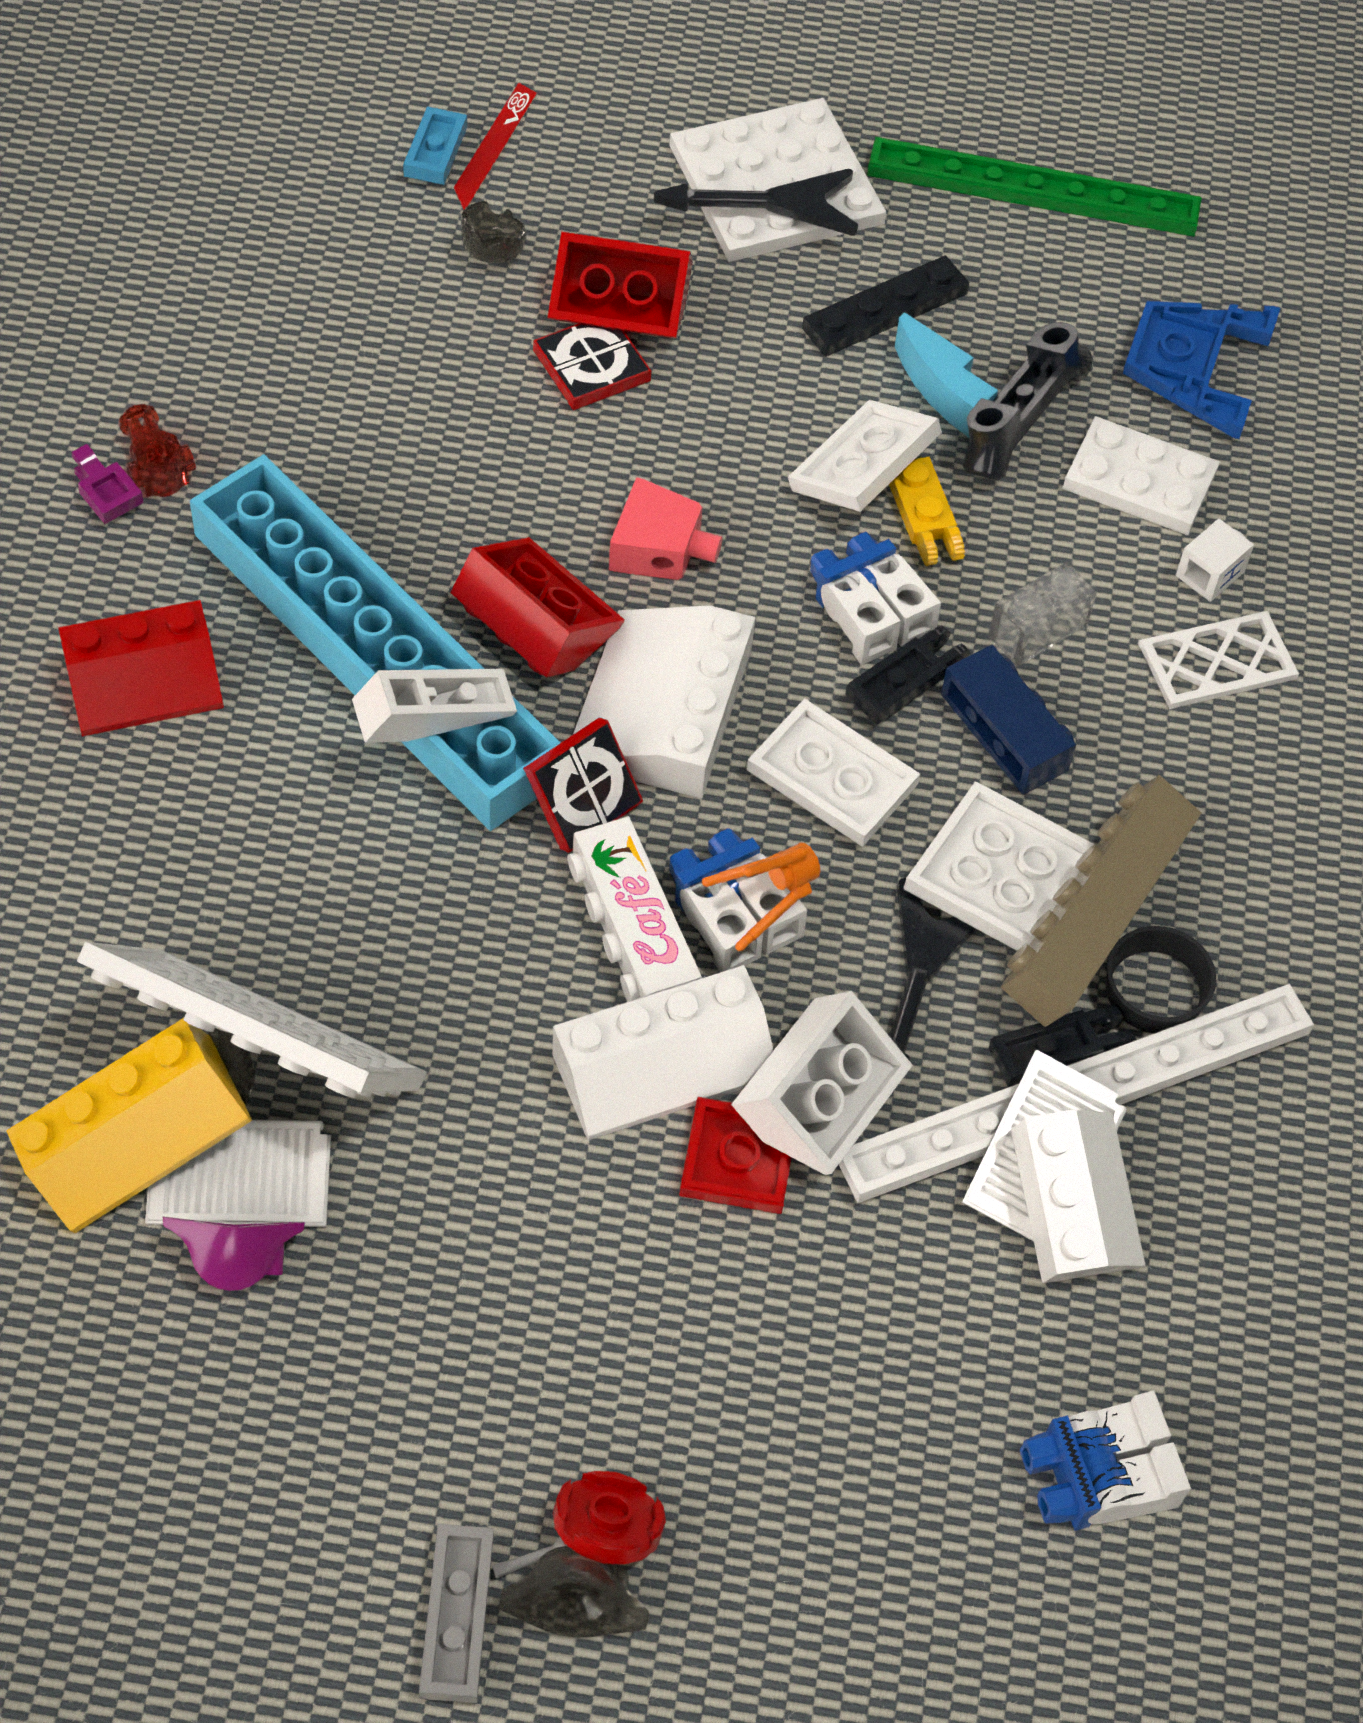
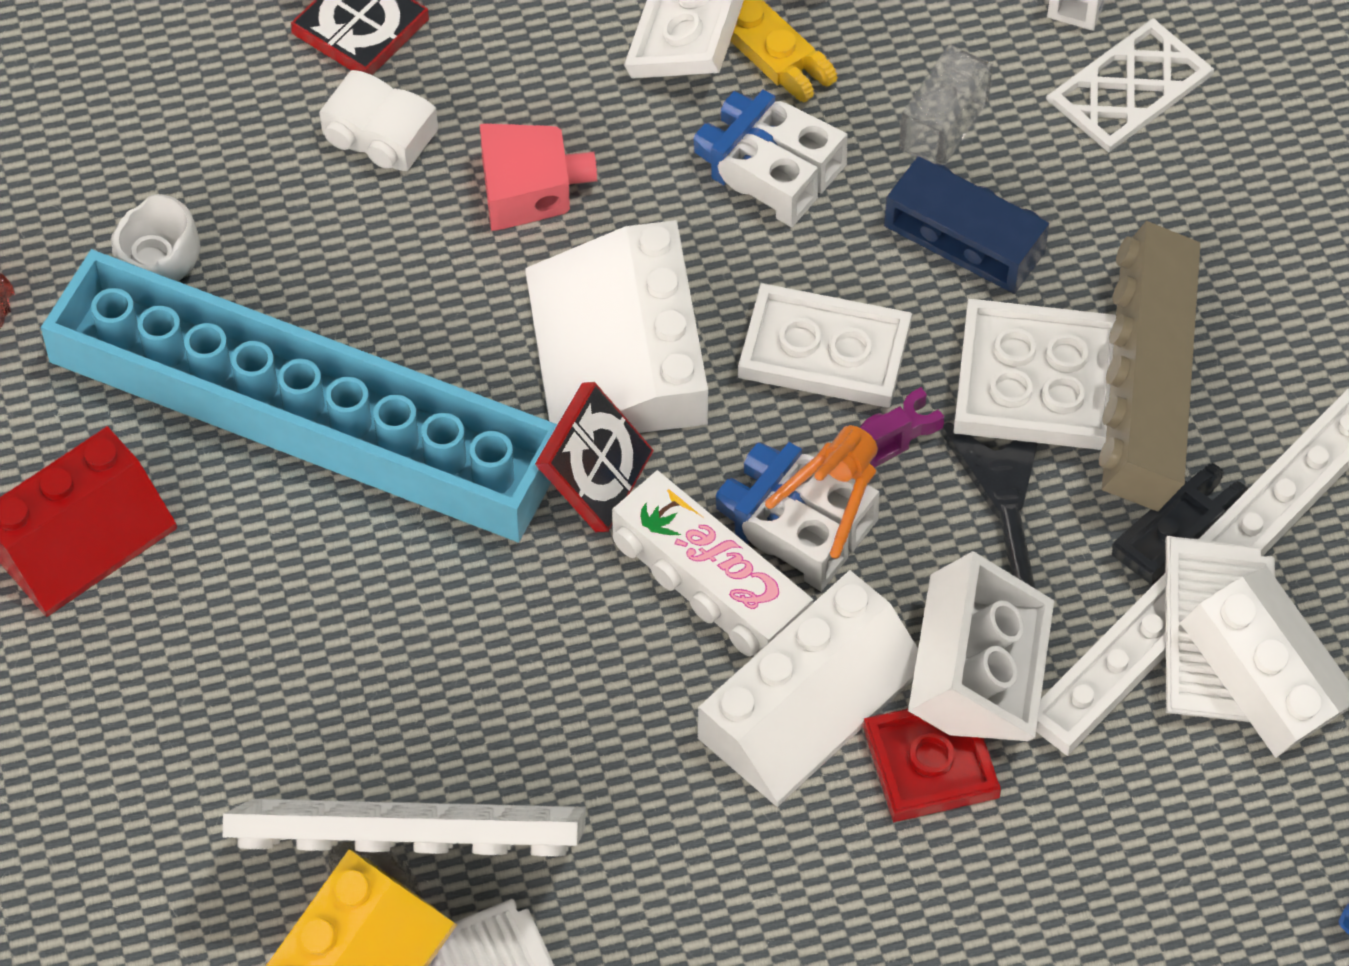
camera: 20 degrees left, 0 degrees up
(328, 470) = (158, 237): none -> white hair
(430, 702) = (410, 435): white slope -> none
(534, 605) = (444, 296): red slope -> none
(560, 445) = (378, 120): none -> white brick
(850, 866) = (898, 427): none -> magenta plate
(904, 675) = (842, 221): black hinge -> none
(1170, 942) = (1250, 383): black tyre -> none

